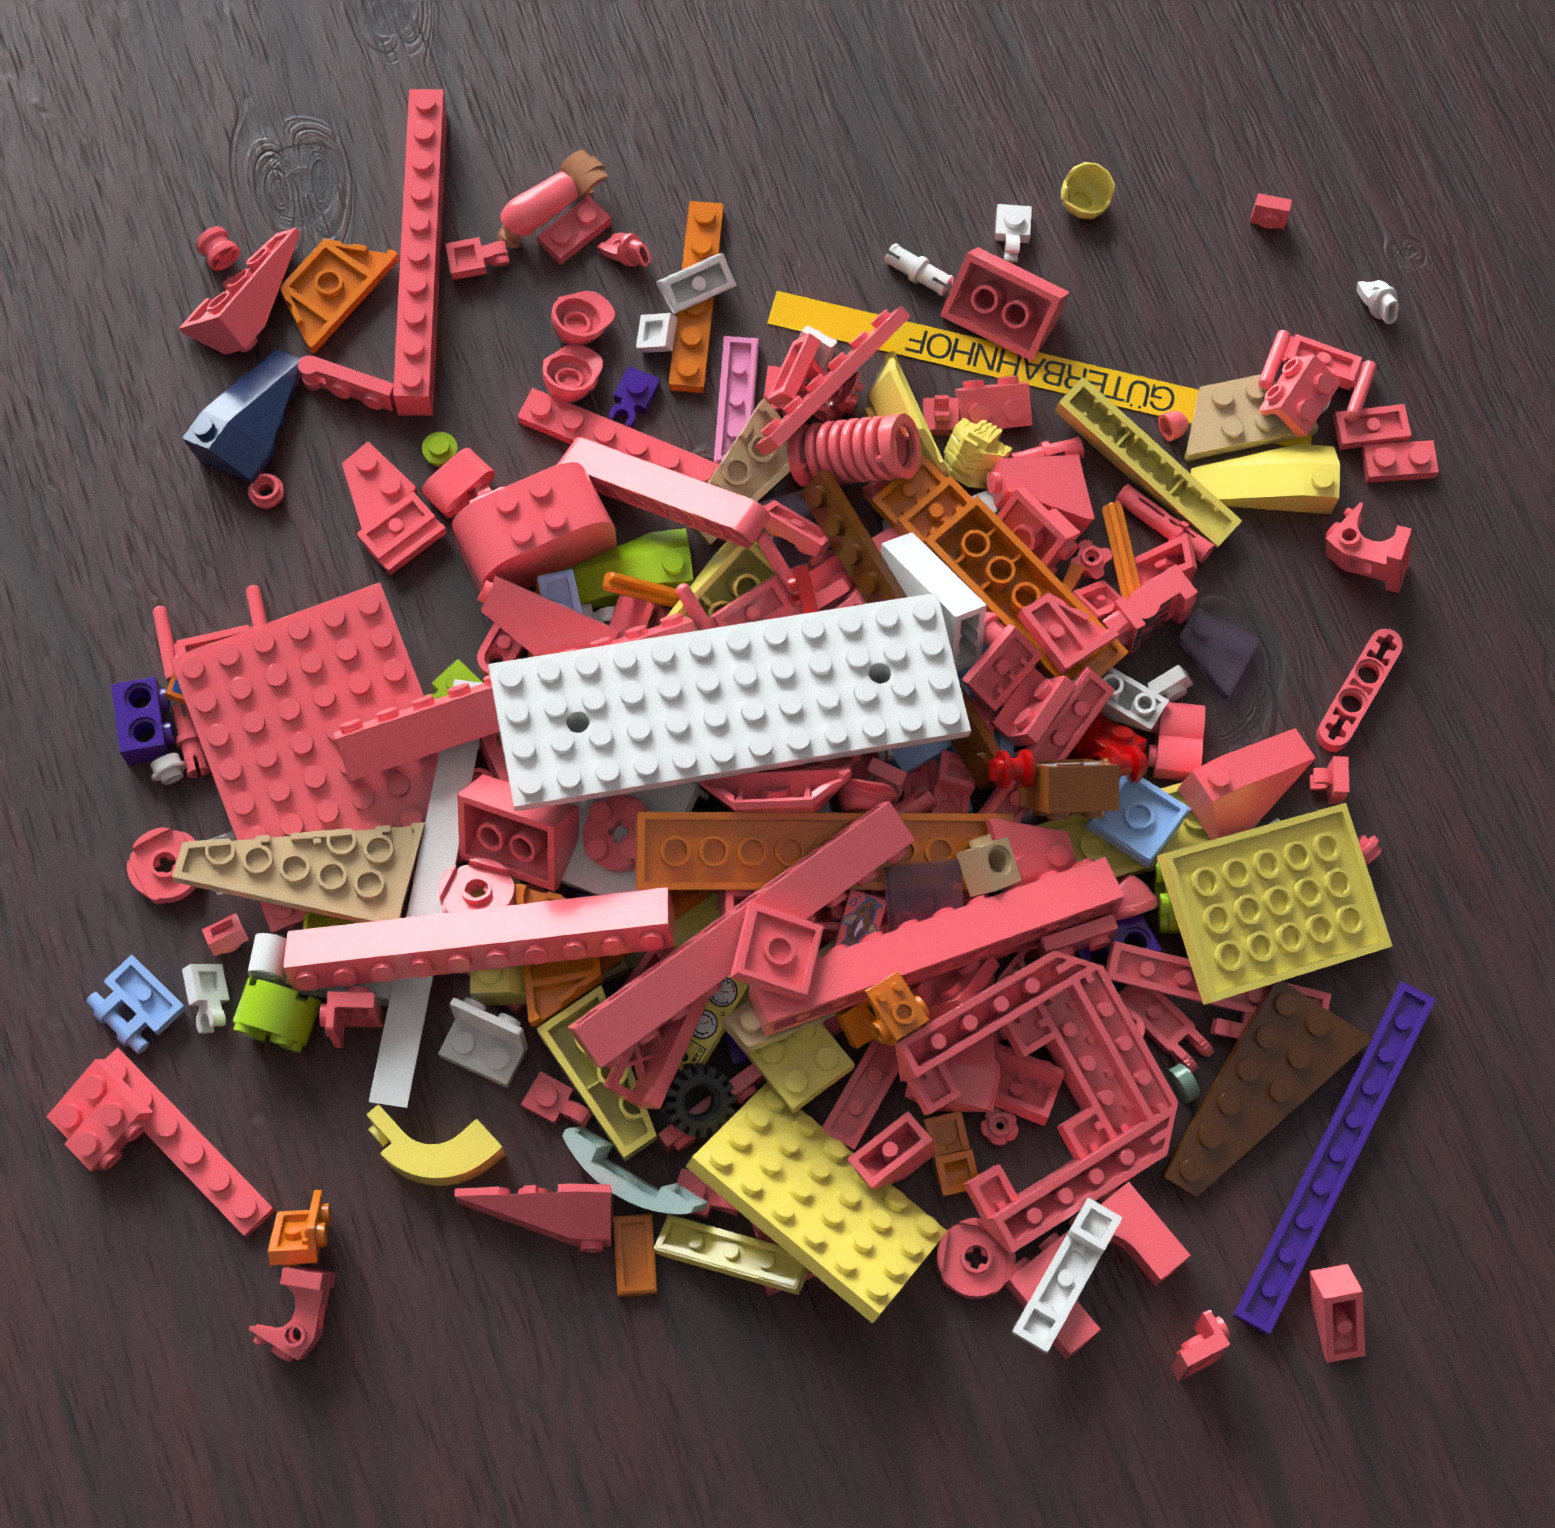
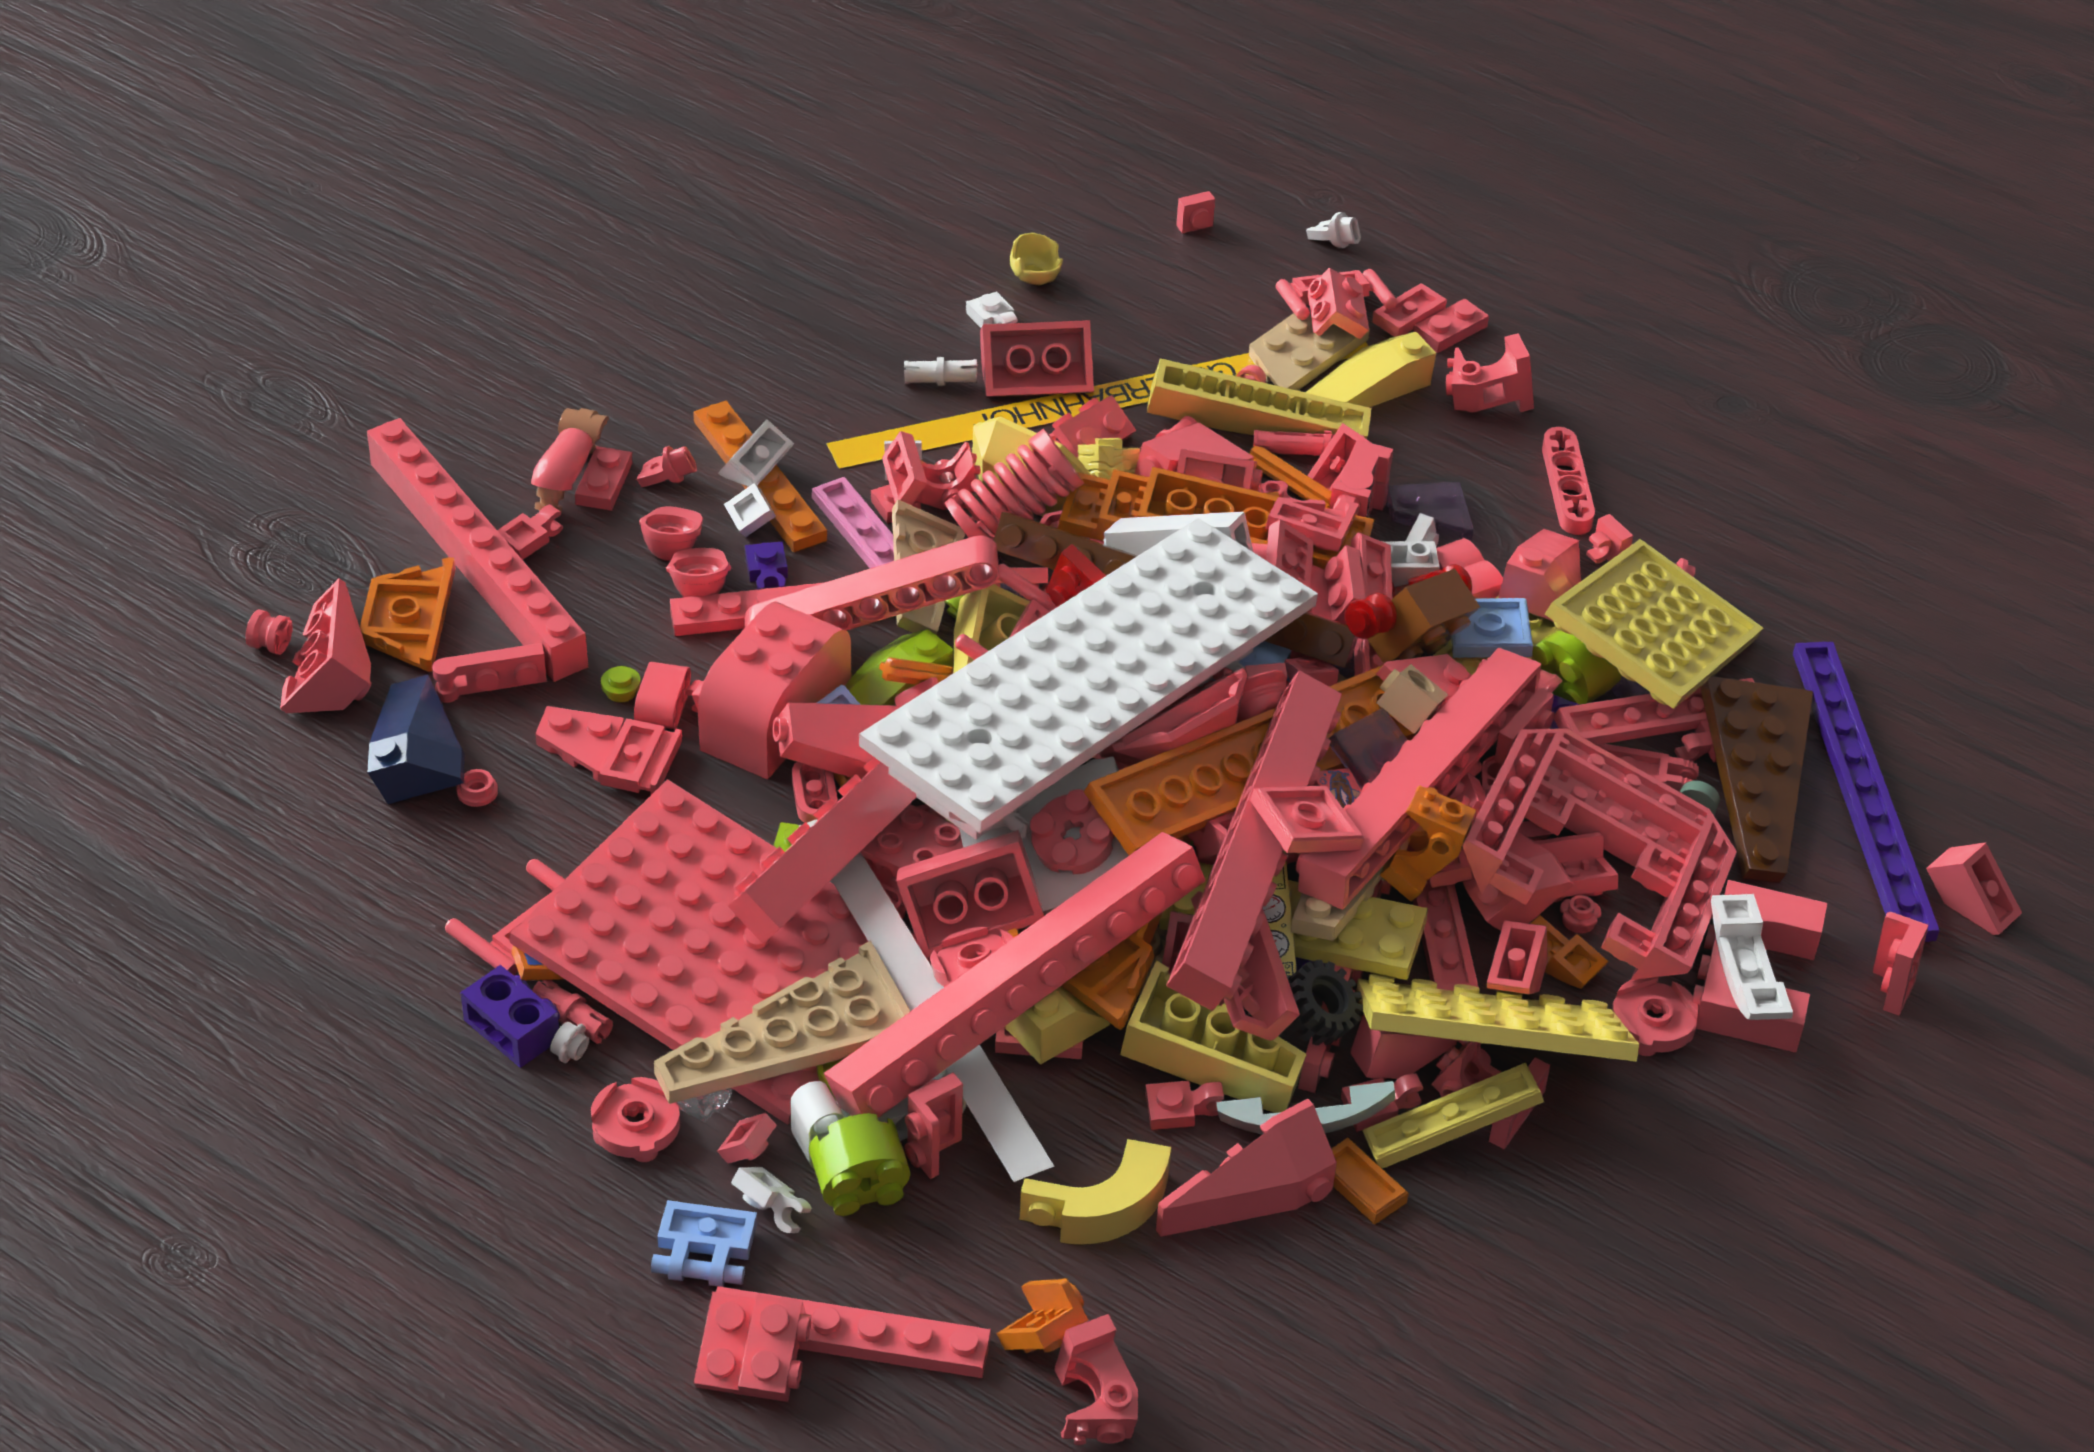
camera: 35 degrees left, 25 degrees down
(484, 1042) = (1074, 1080): white bracket -> none
(822, 387) = (948, 457): coral plate -> none

